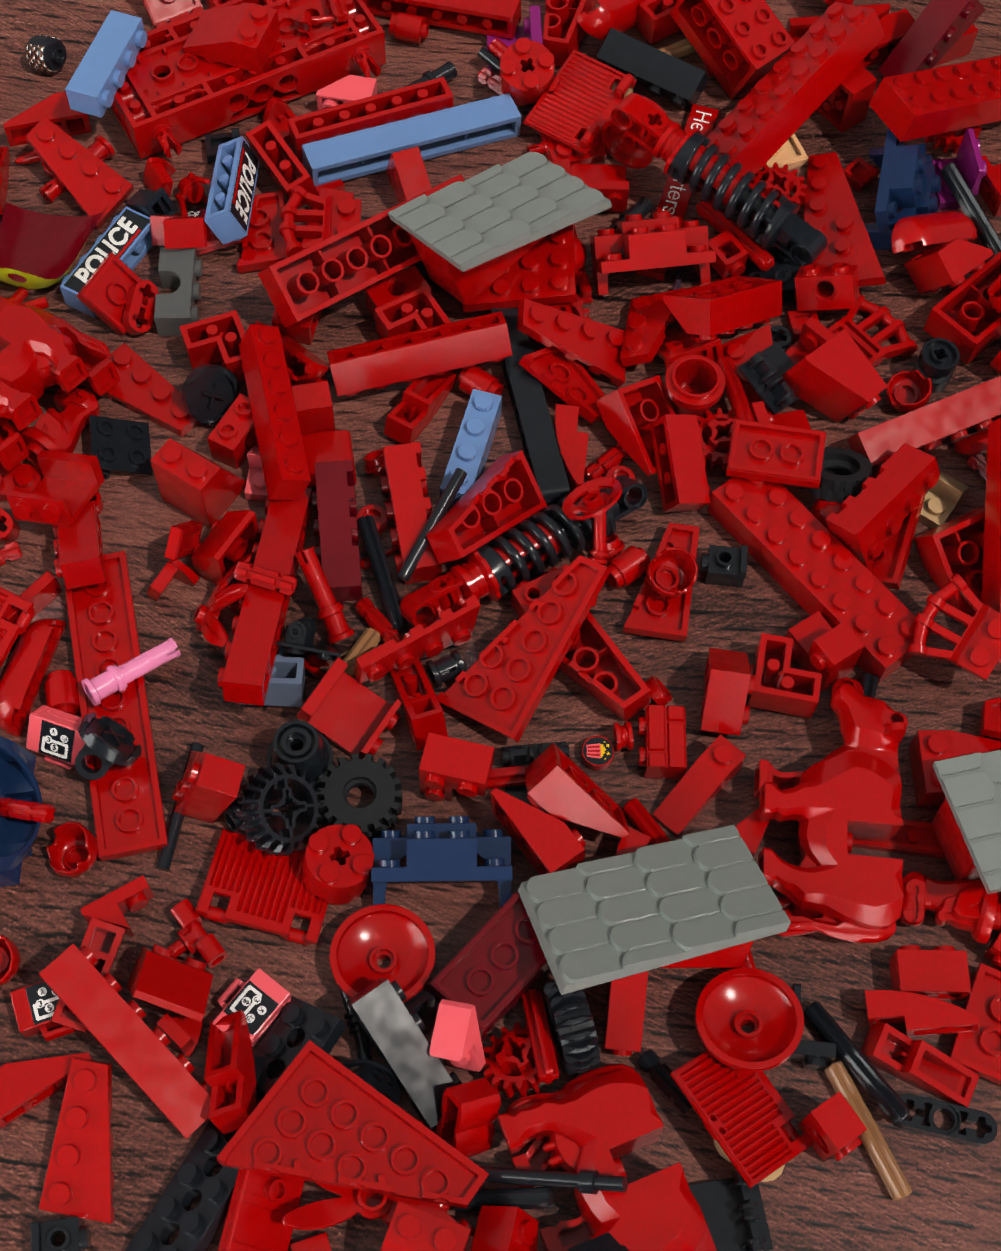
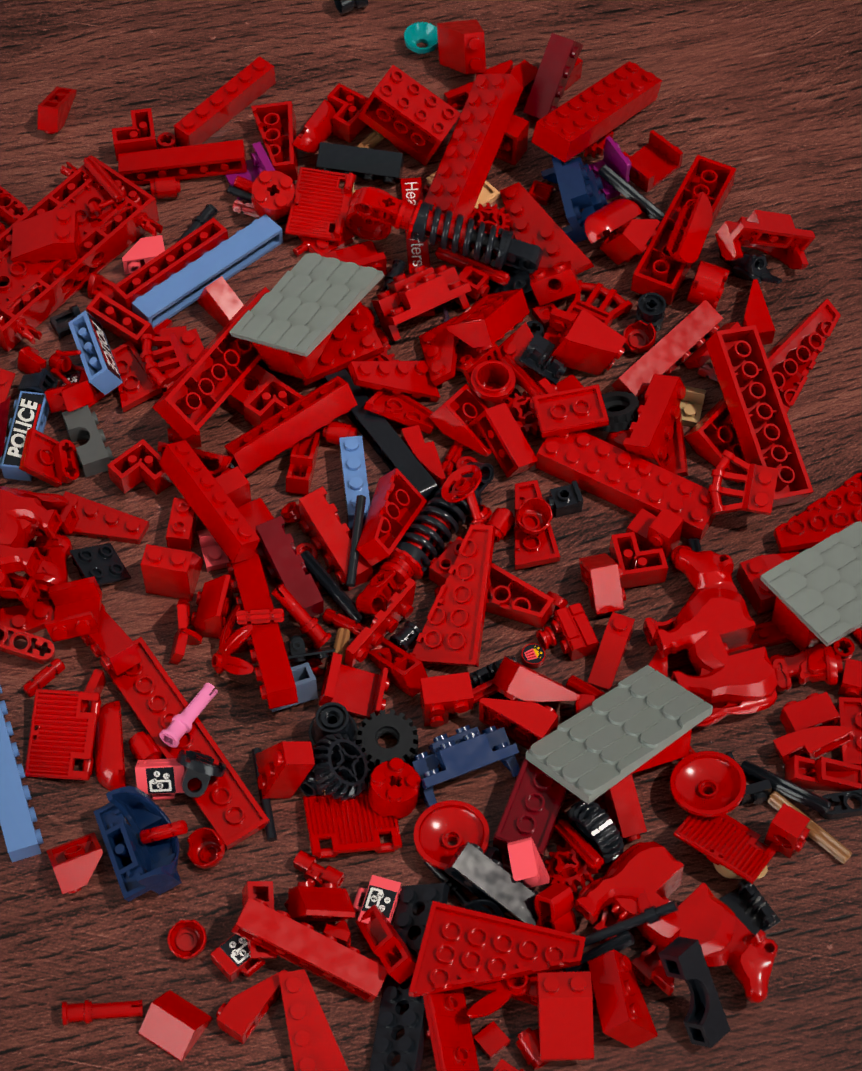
camera: 20 degrees left, 5 degrees down
(112, 906) = (254, 870): red slope -> none
(209, 393) = (150, 505): black tile -> none
(661, 1077) = (673, 846): black axle -> none

